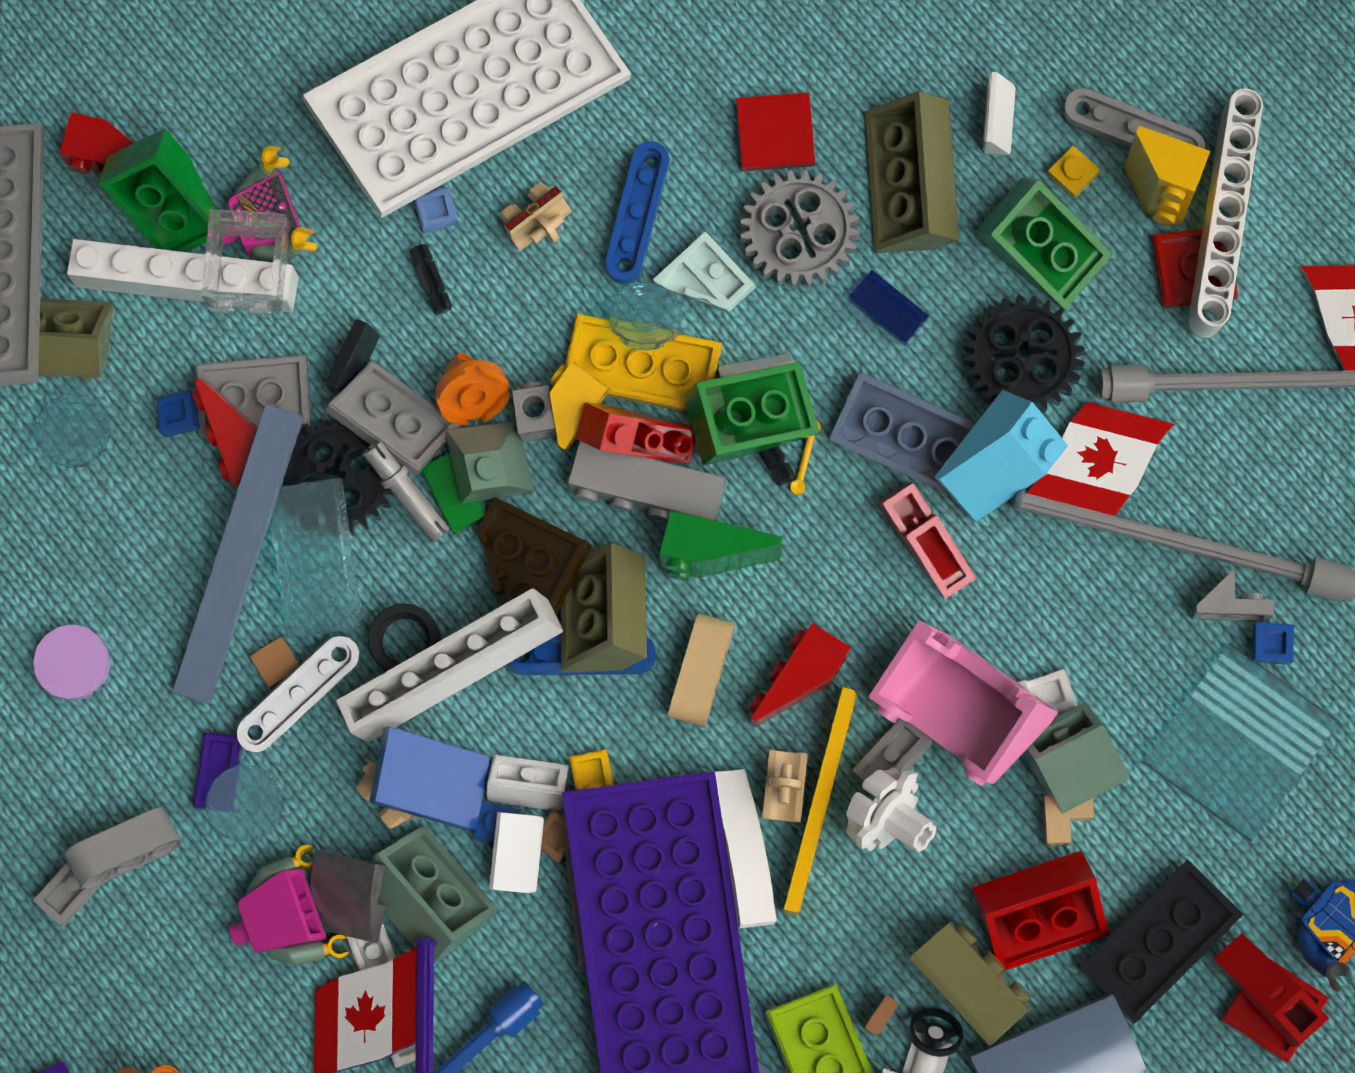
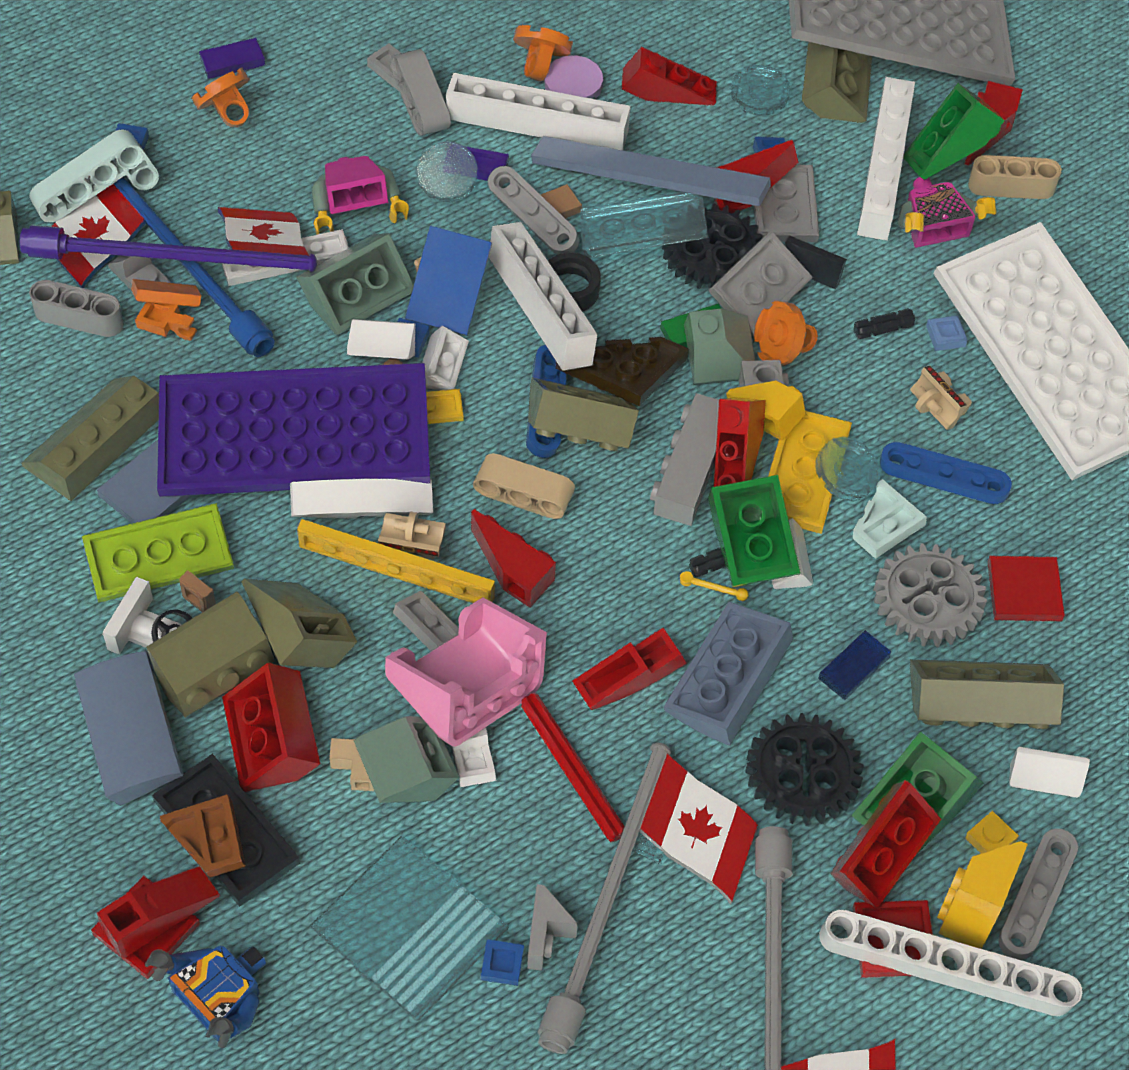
camera: 85 degrees right, 20 degrees down
(34, 702) = (541, 48): none -> orange tile
(72, 544) = (664, 80): none -> red slope
(145, 698) = (537, 111): none -> white brick
(202, 111) = (1014, 177): none -> tan beam
(244, 224) = (894, 154): clear window -> none
(348, 895) = (367, 221): flat silver slope -> none
(396, 479) = (696, 282): light grey pin -> none
(710, 547) = (632, 478): green slope -> none
(890, 813) = (372, 606): white piece -> none
(913, 897) = (299, 624): none -> olive slope
(1000, 456) = (703, 728): medium azure slope -> none
(1043, 592) = (573, 767): none -> red axle
(1116, 273) = (886, 844): none -> red slope
(1182, 952) = (208, 834): none -> dark orange wing

